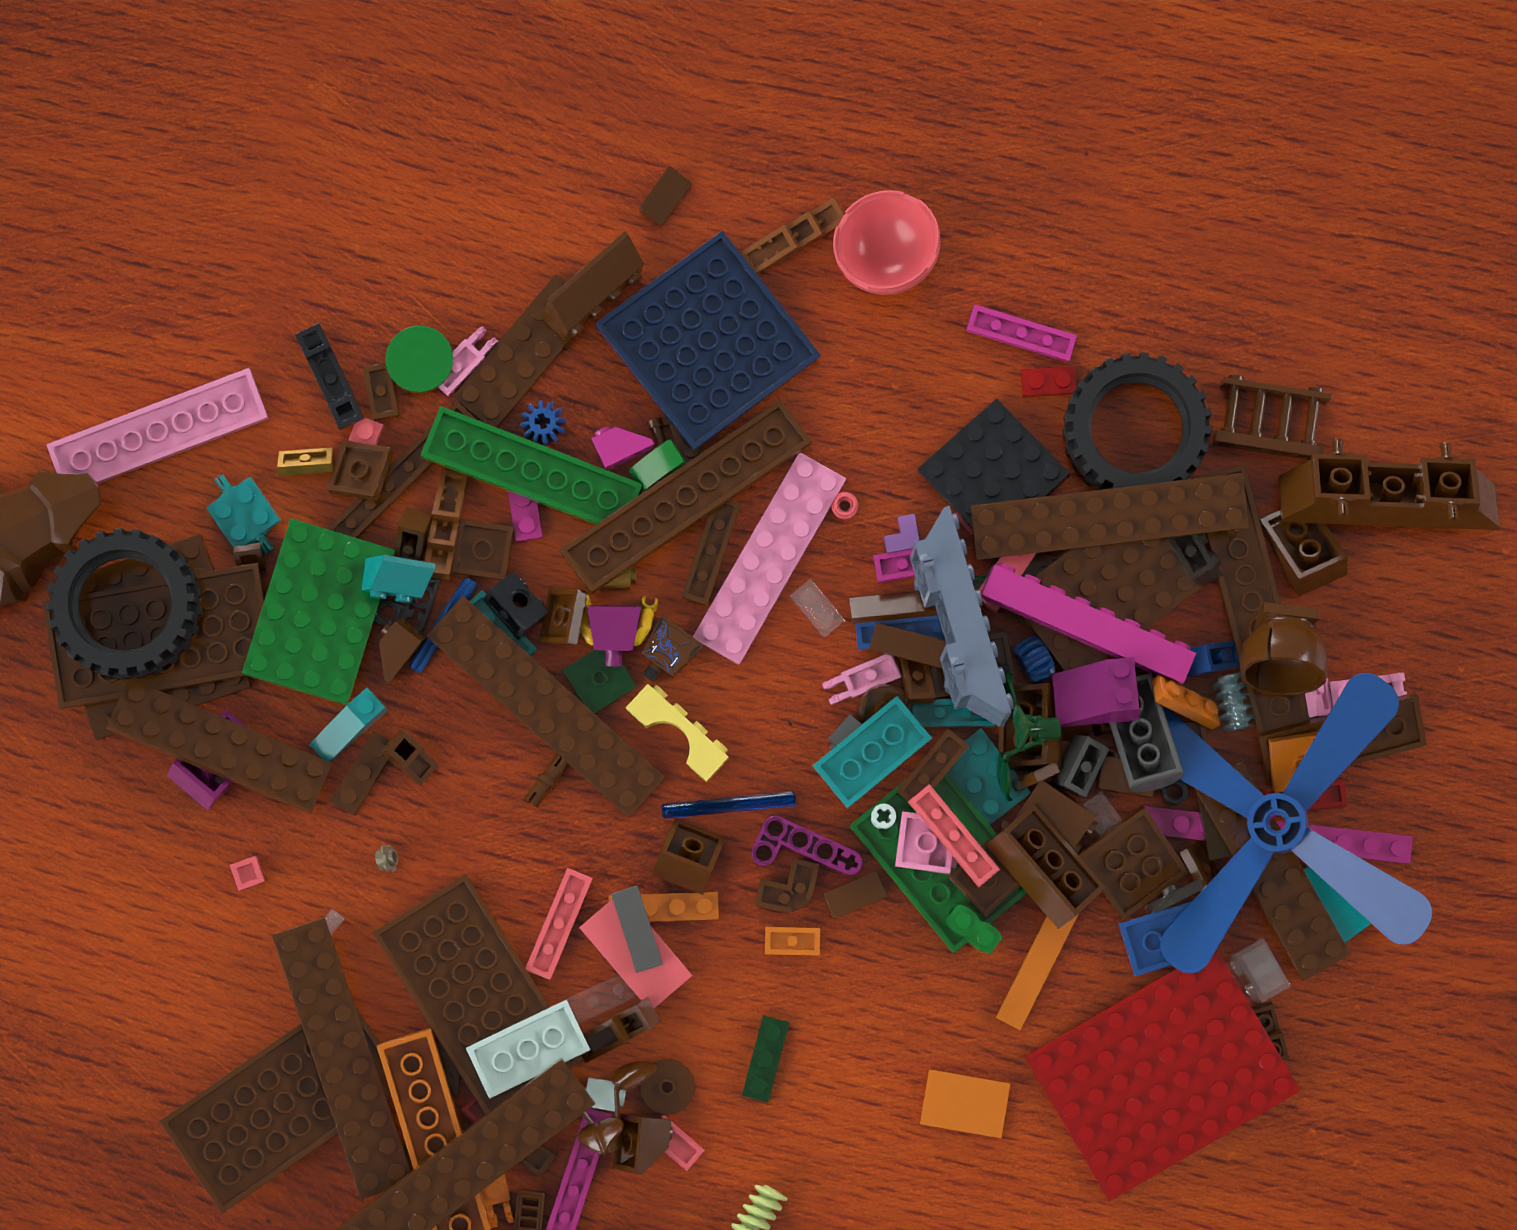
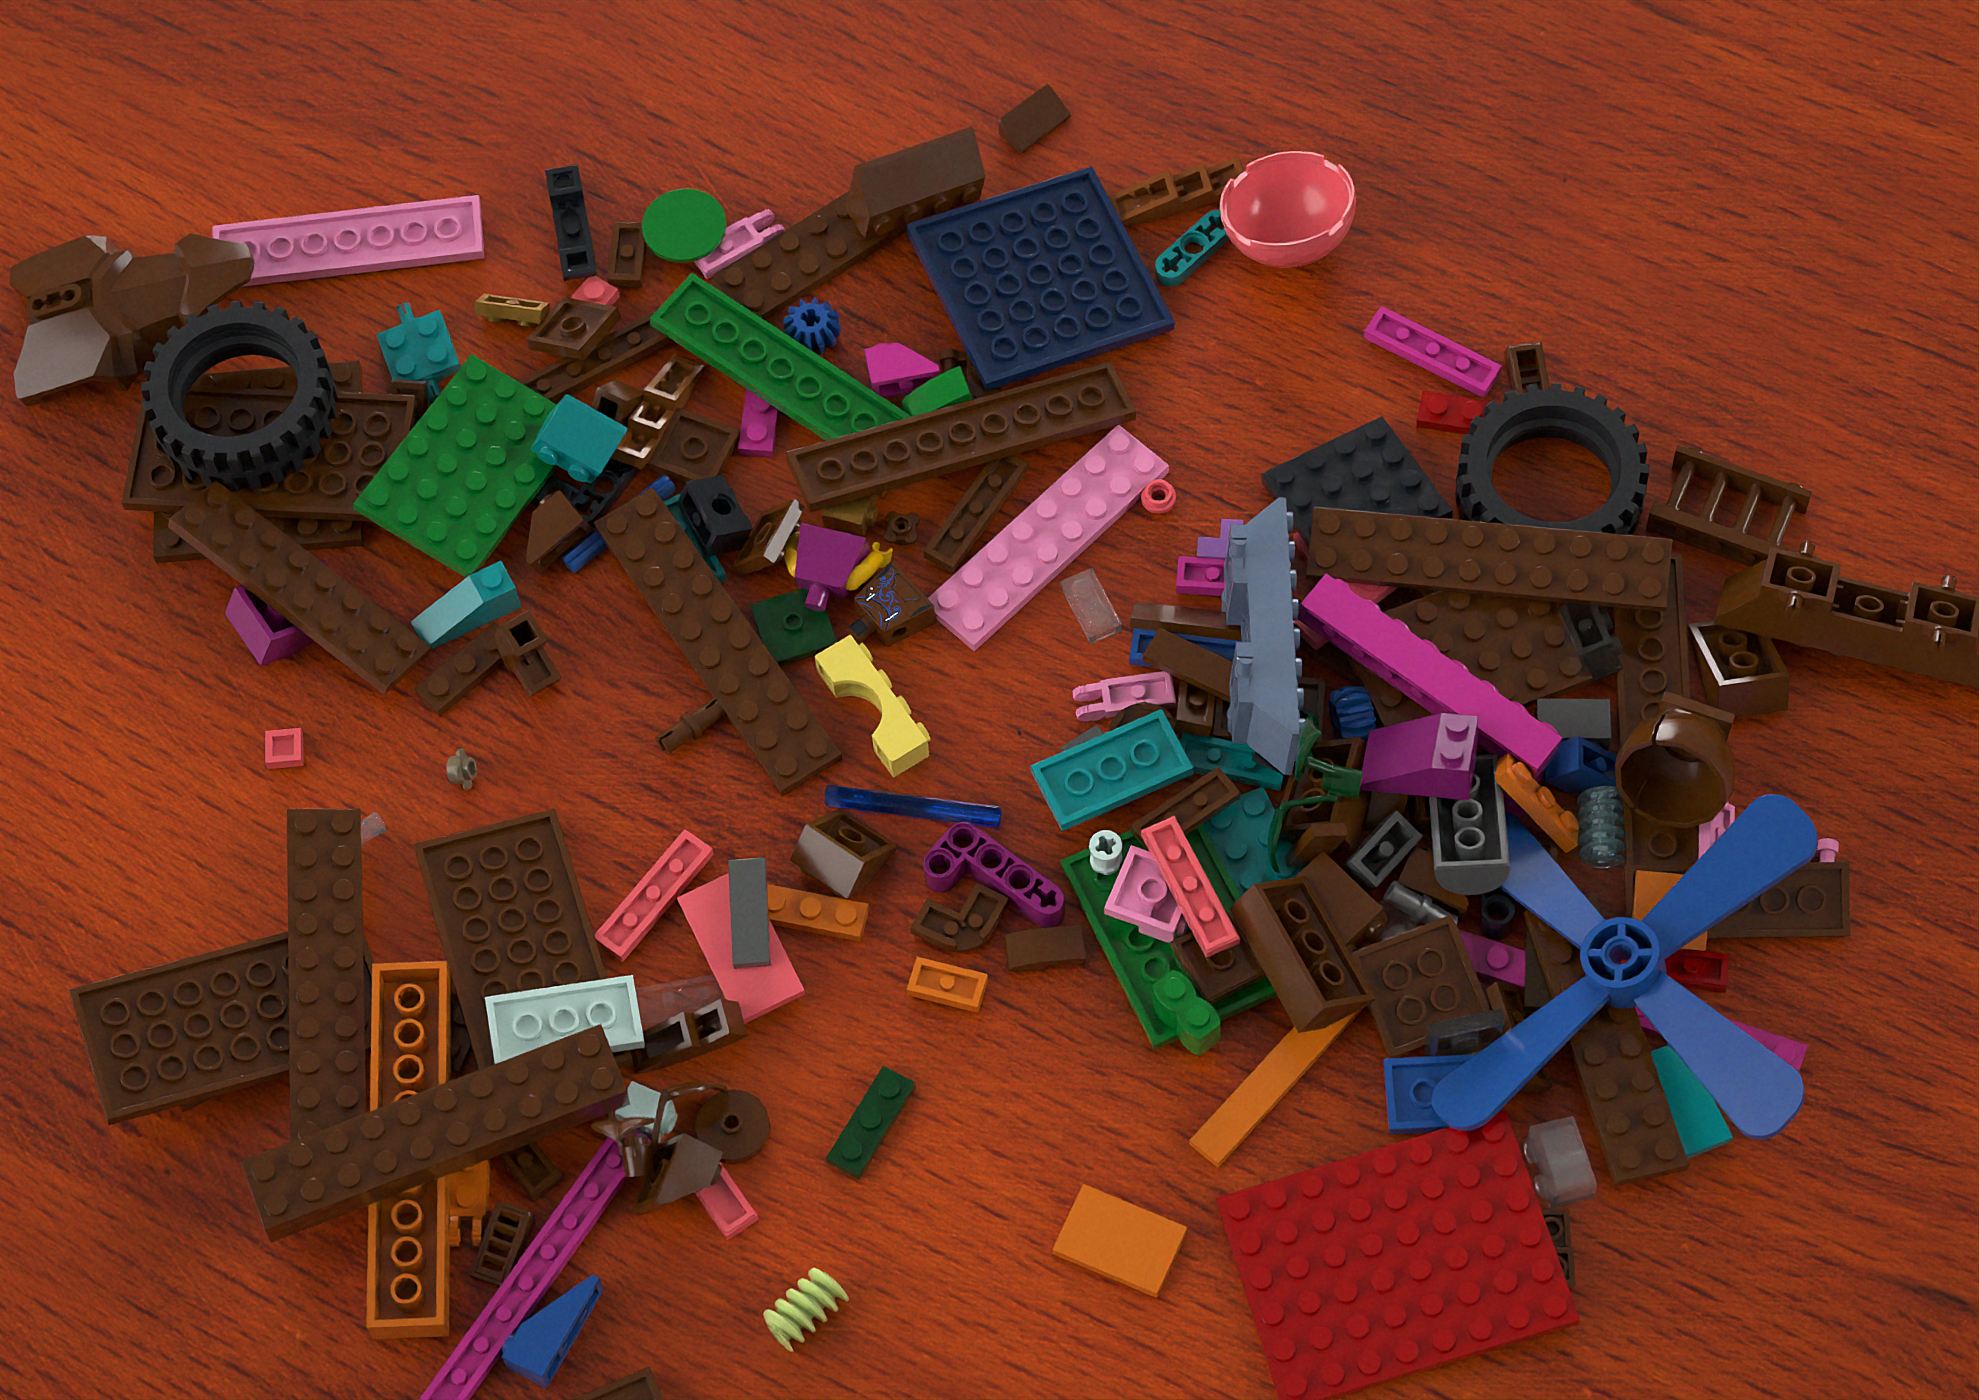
camera: 20 degrees right, 20 degrees down
(662, 571) = (905, 536): none -> reddish brown plate
(802, 296) = (1190, 262): none -> teal beam
(1089, 341) = (1523, 352): none -> reddish brown slope
(1118, 802) = (1418, 907): none -> flat silver pin
(1196, 625) = (1577, 718): none -> dark grey brick

